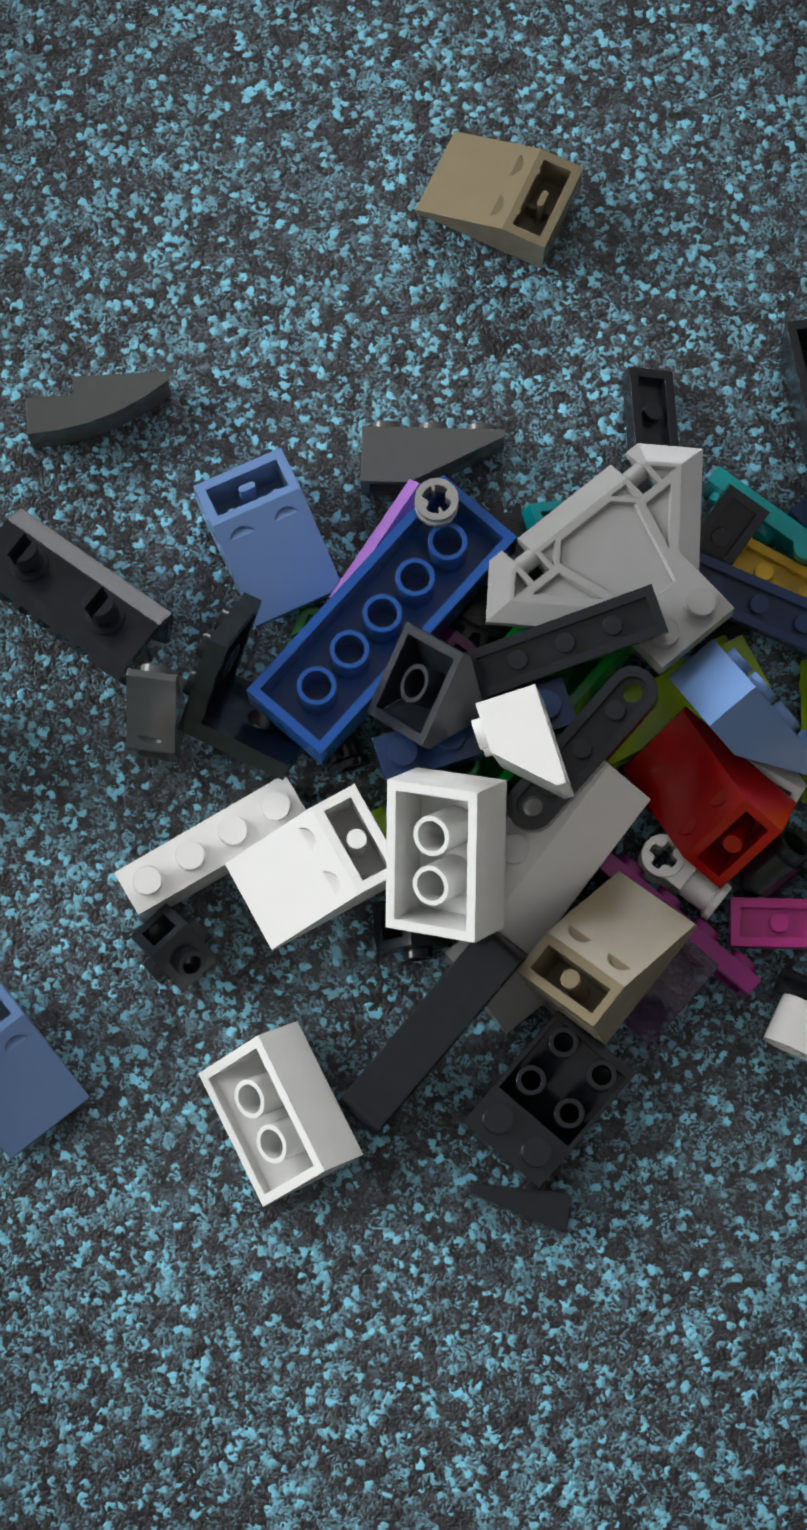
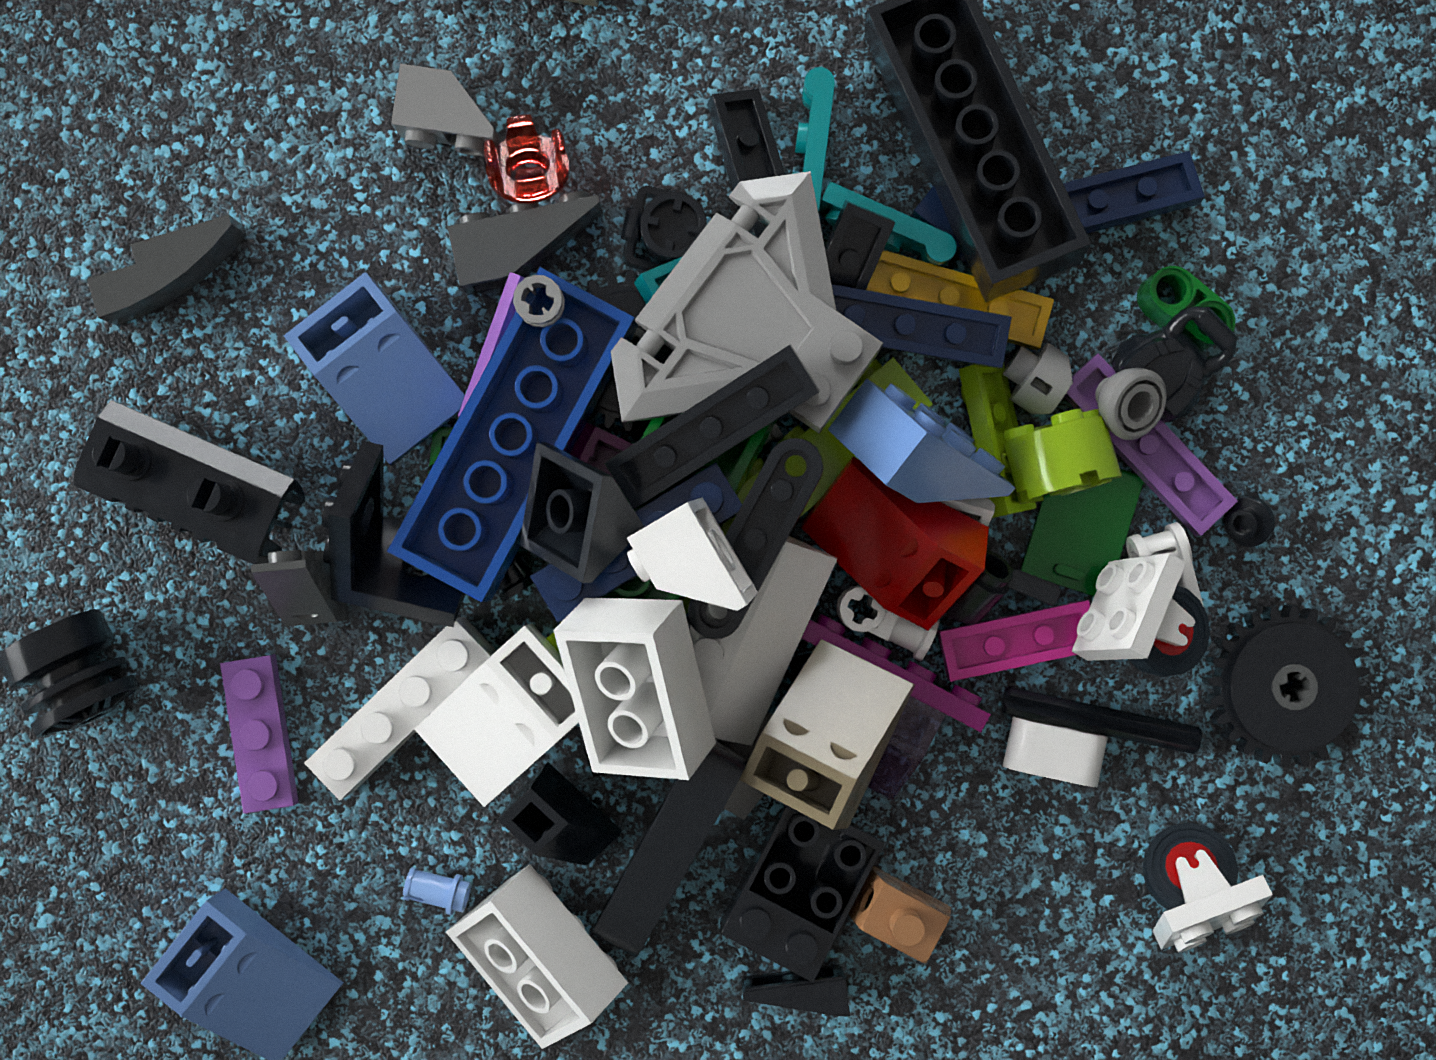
camera: 15 degrees left, 10 degrees up
(70, 846) = (259, 733): none -> medium lavender plate
(175, 948) = (387, 820): black brick -> none
(201, 1029) = (437, 890): none -> light blue pin
(334, 987) = (558, 819): none -> black slope
(378, 325) = (437, 109): none -> light grey slope
(463, 389) = (521, 147): none -> clear red piece
(558, 470) = (666, 225): none -> black piece
(635, 1149) = (900, 915): none -> medium nougat torso
(713, 424) = (813, 136): none -> teal plate

